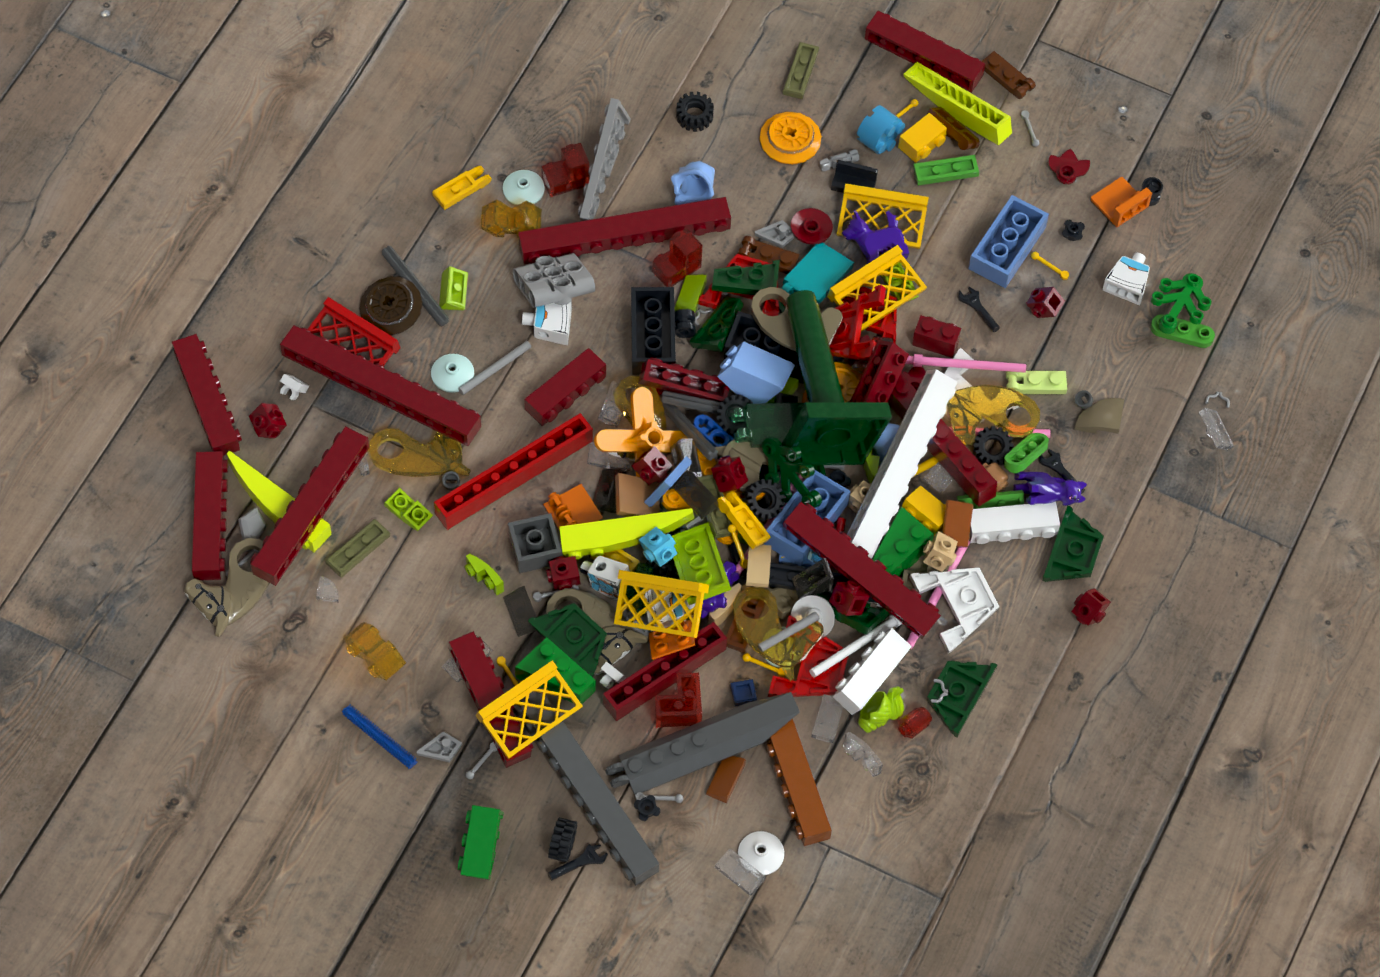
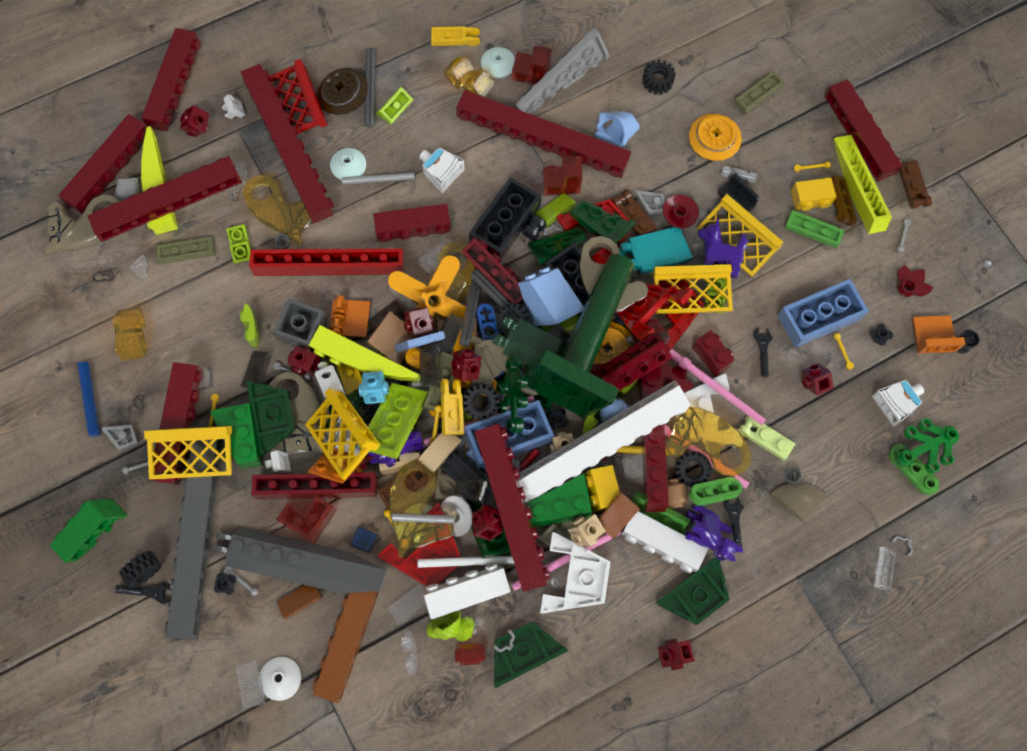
camera: 35 degrees right, 10 degrees up
(553, 280) = (461, 139): light grey connector -> none
(880, 130) = (784, 169): dark azure brick -> none

